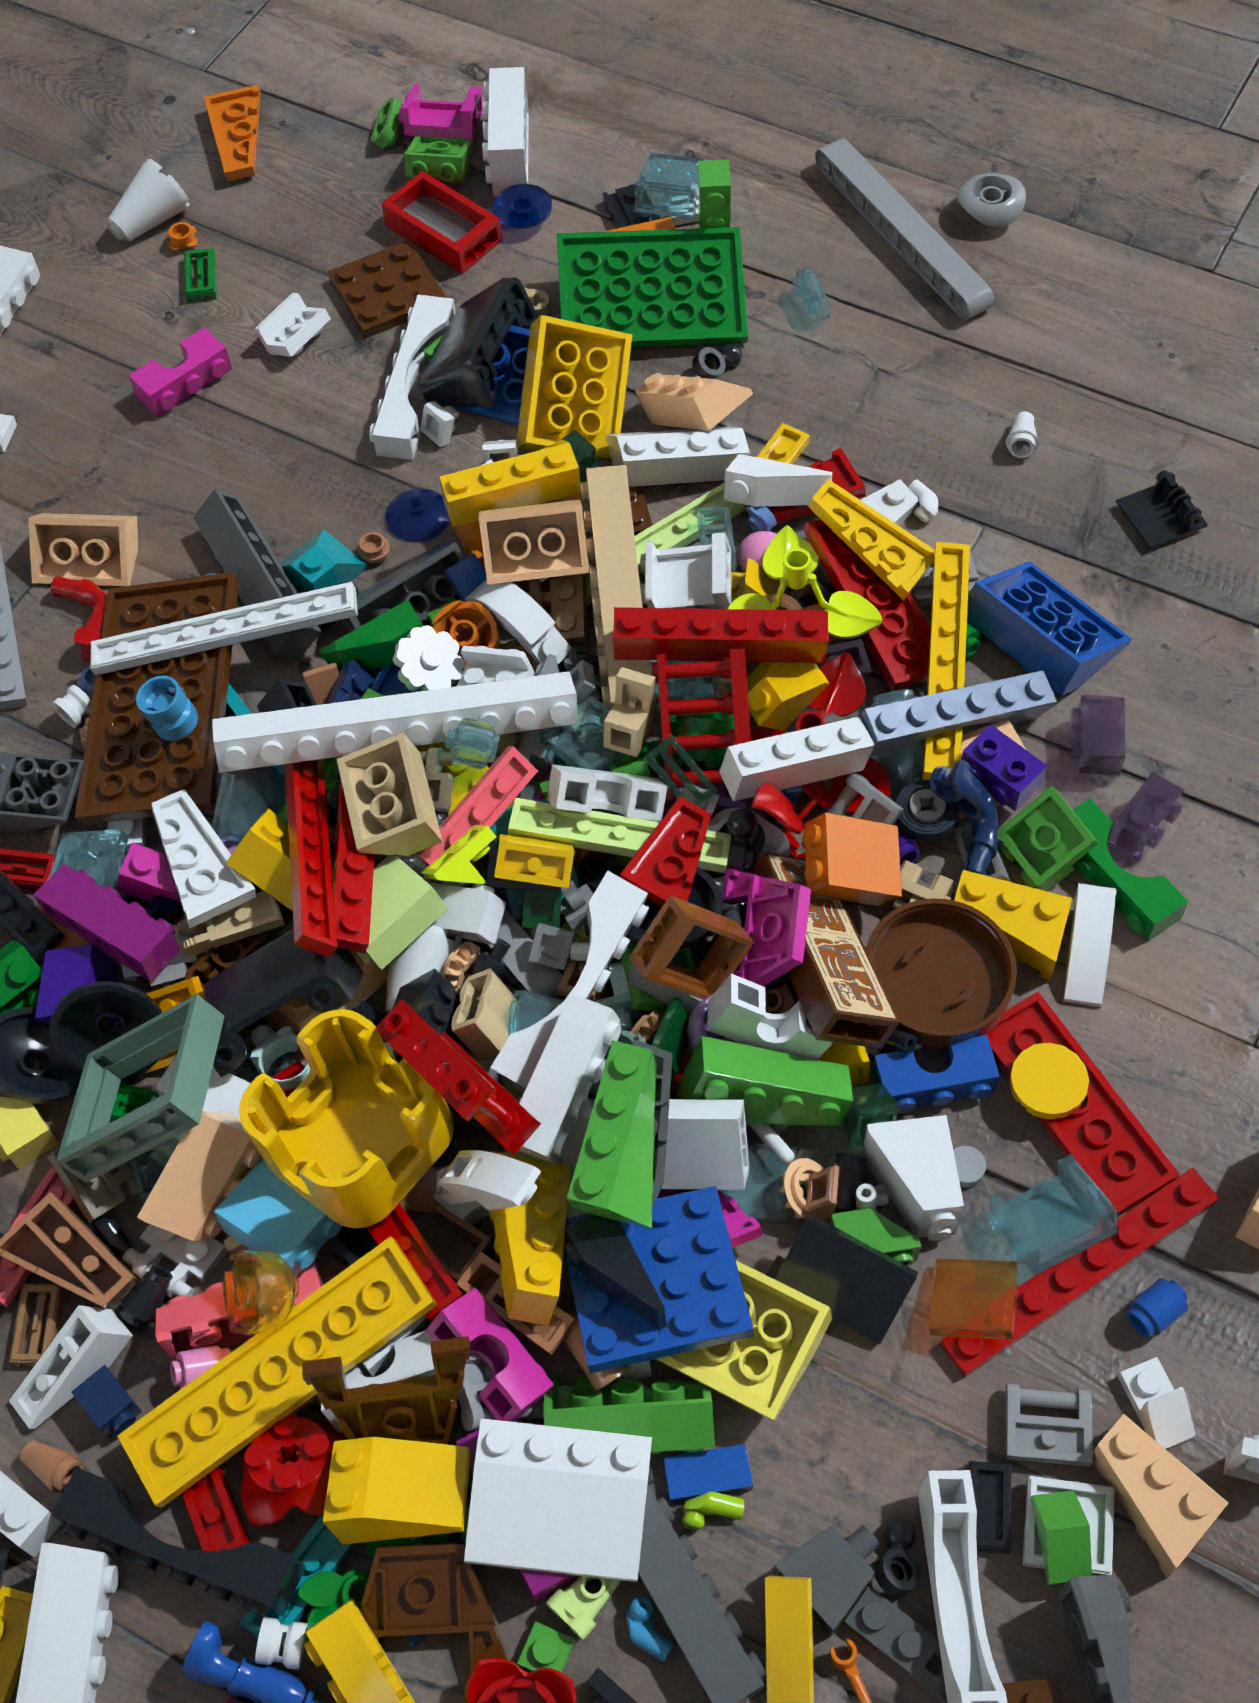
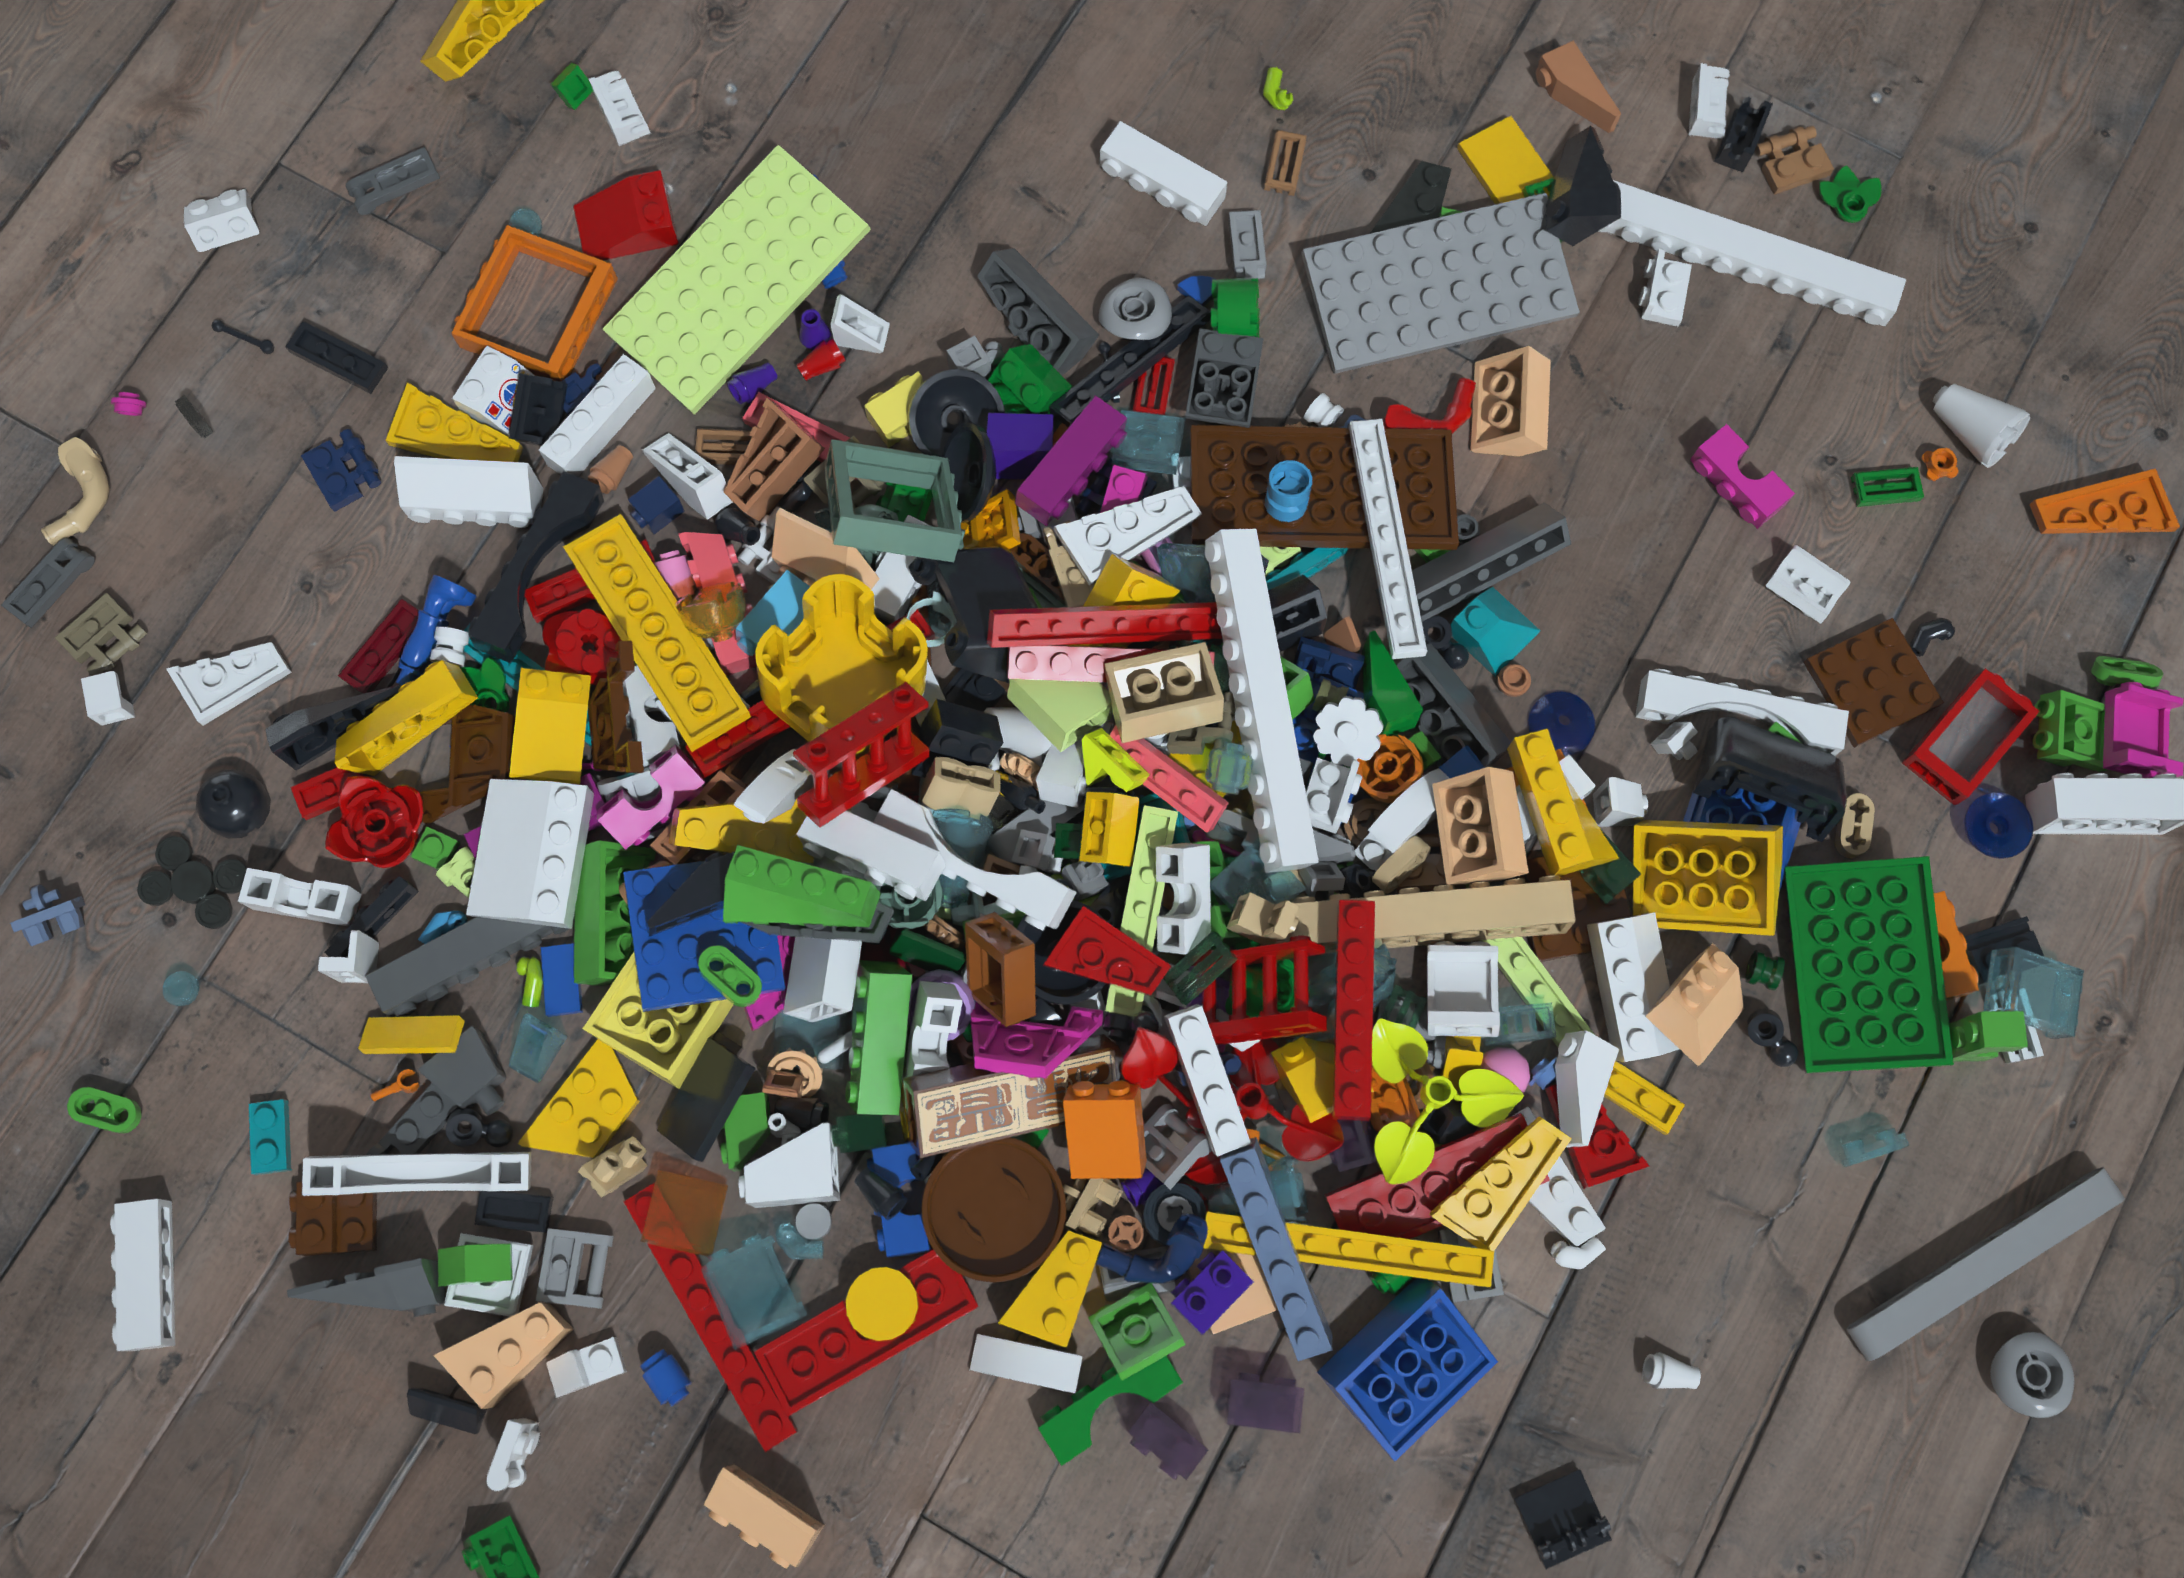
camera: 85 degrees right, 15 degrees up
(341, 247) = (1937, 628): none -> black arm
(388, 681) = (1328, 693): none -> olive wheel
(566, 623) = (1401, 864): none -> tan beam
(656, 359) = (1764, 970): none -> dark green wheel
(708, 1232) = (732, 974): none -> bright green plate
(794, 1492) = (535, 1047): none -> clear light blue slope
(859, 1430) = (585, 1108): none -> yellow wing
(929, 1379) = (615, 1166): none -> tan hips
(935, 1078) = (880, 1193): none -> black cone
(947, 853) = (1126, 1225): none -> nougat wheel
(995, 1182) = (795, 1246): none -> clear light blue arm
(1230, 1564) = (445, 1410): none -> black slope

